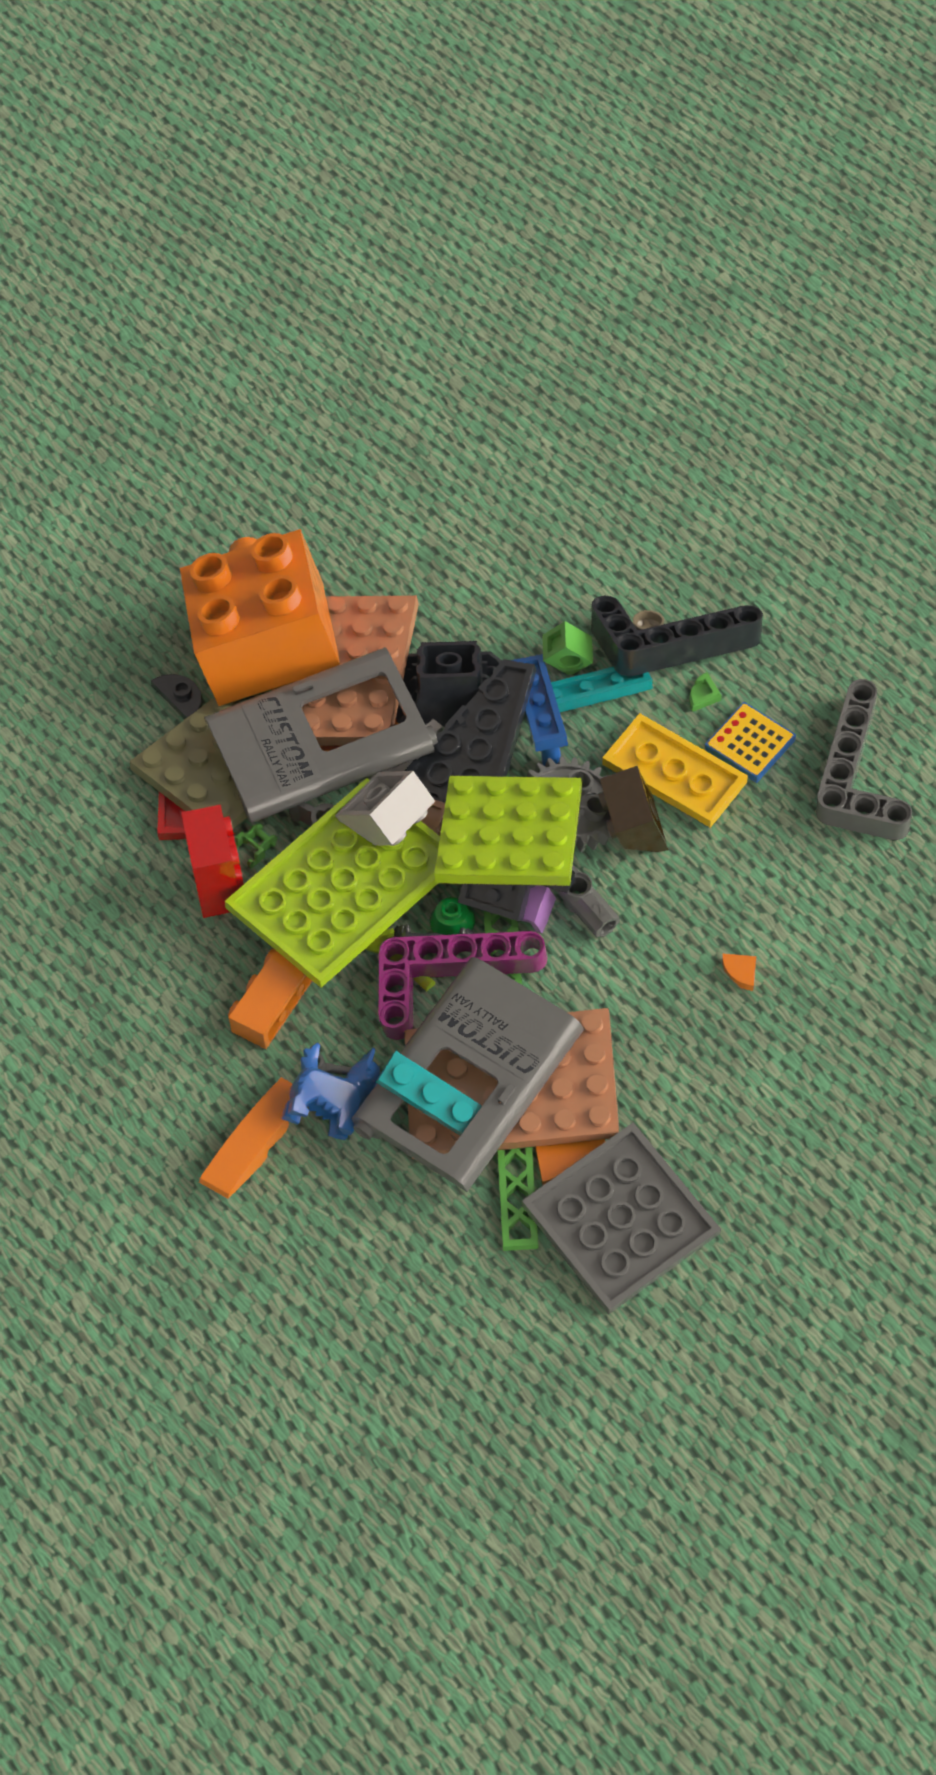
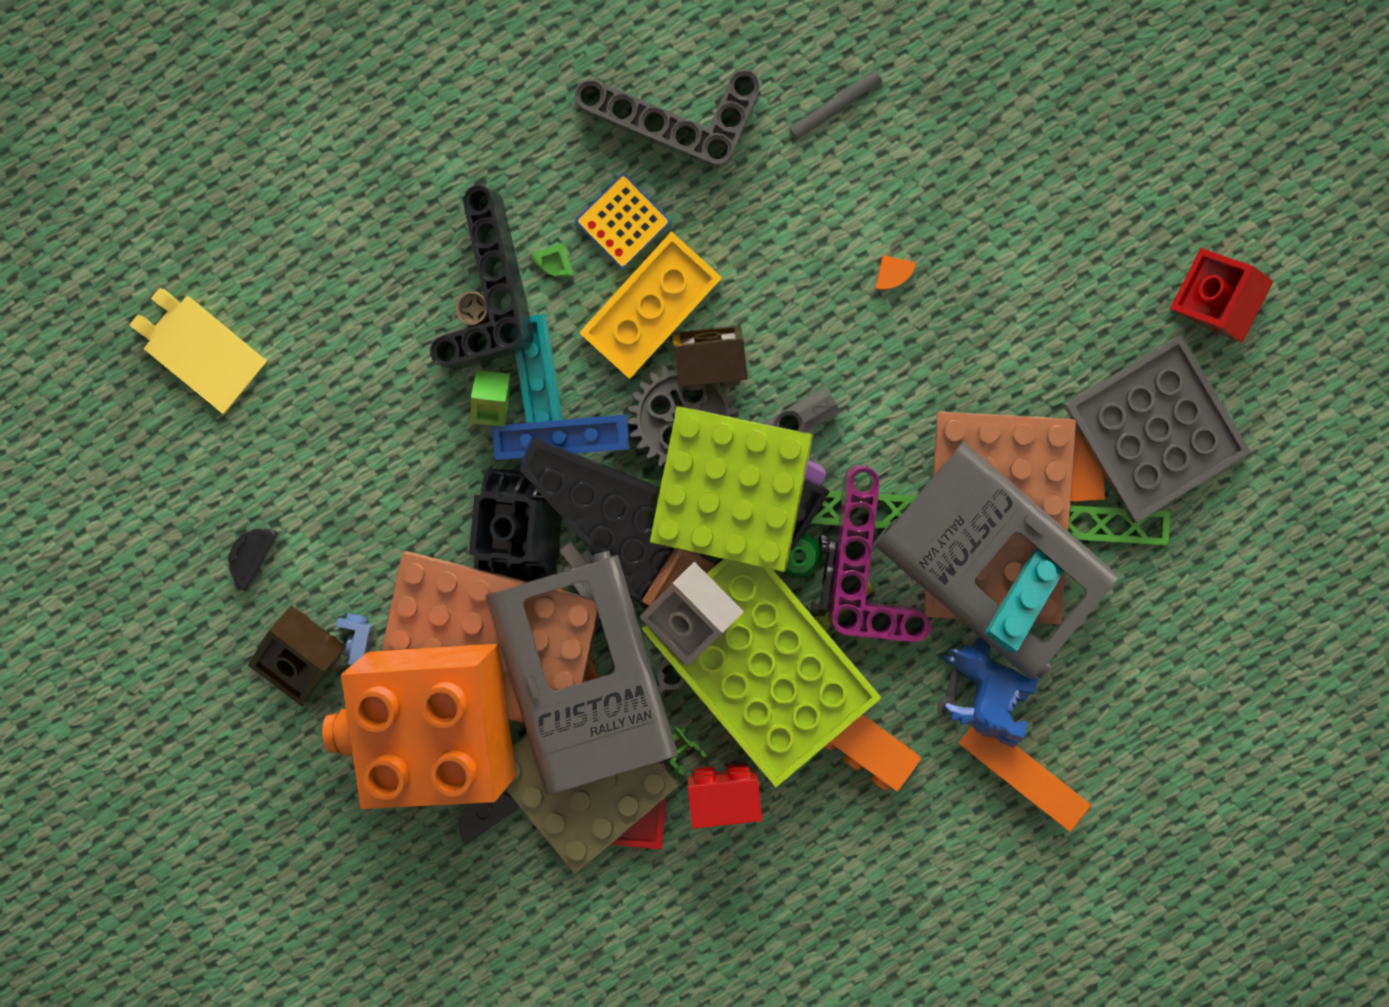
camera: 85 degrees left, 30 degrees up
(325, 528) = (296, 655): none -> dark brown slope
(338, 579) = (360, 642): none -> medium blue bracket
(400, 492) = (249, 554): none -> black plate
(579, 438) = (200, 350): none -> light yellow tile
(767, 1266) = (1222, 294): none -> red slope
(895, 903) = (836, 104): none -> dark grey bar

